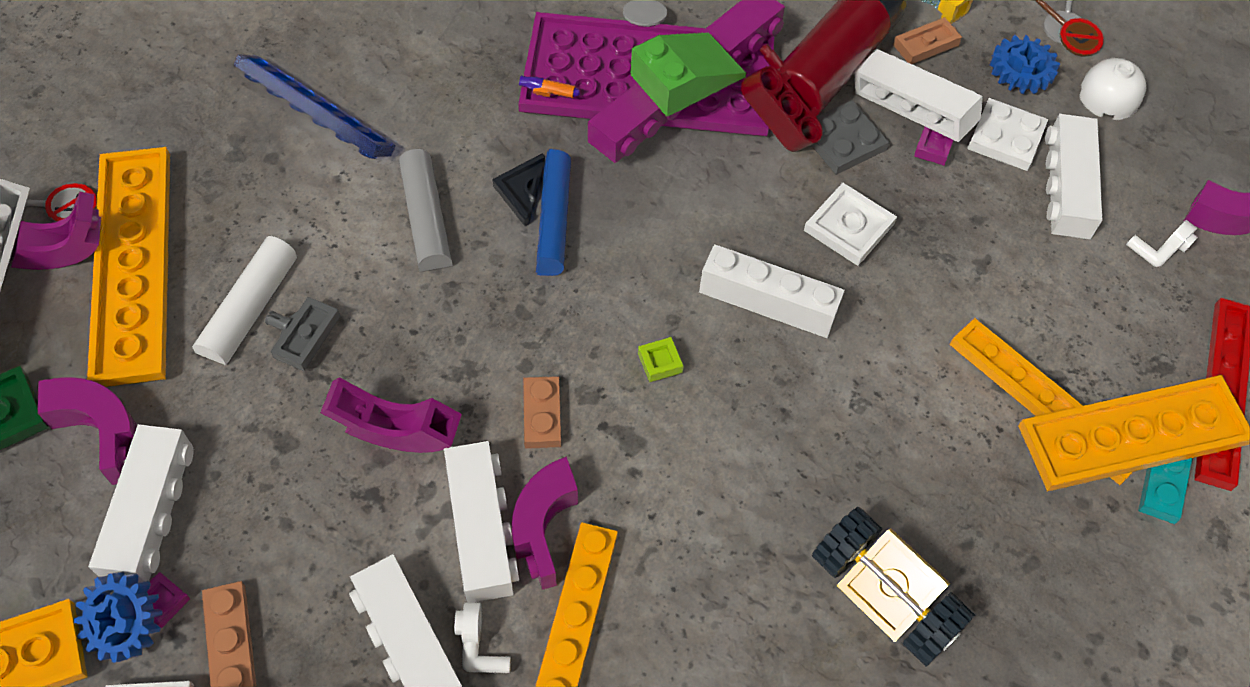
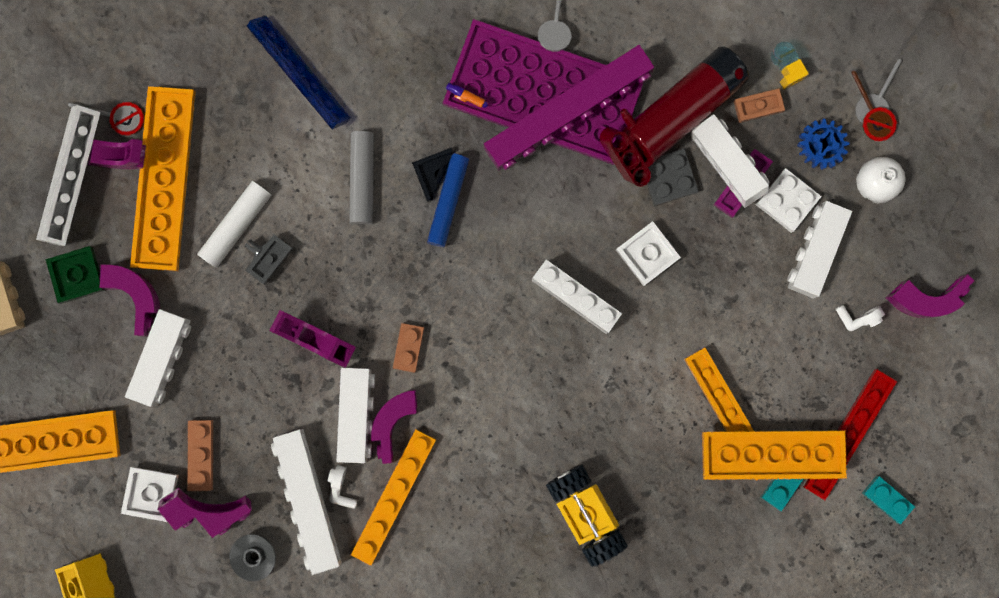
camera: 15 degrees right, 25 degrees up
(118, 616) = (139, 428): blue gear -> none
(170, 598) = (163, 419): magenta tile -> none
(660, 359) = (491, 329): lime plate -> none
(682, 69) = (563, 116): bright green slope -> none

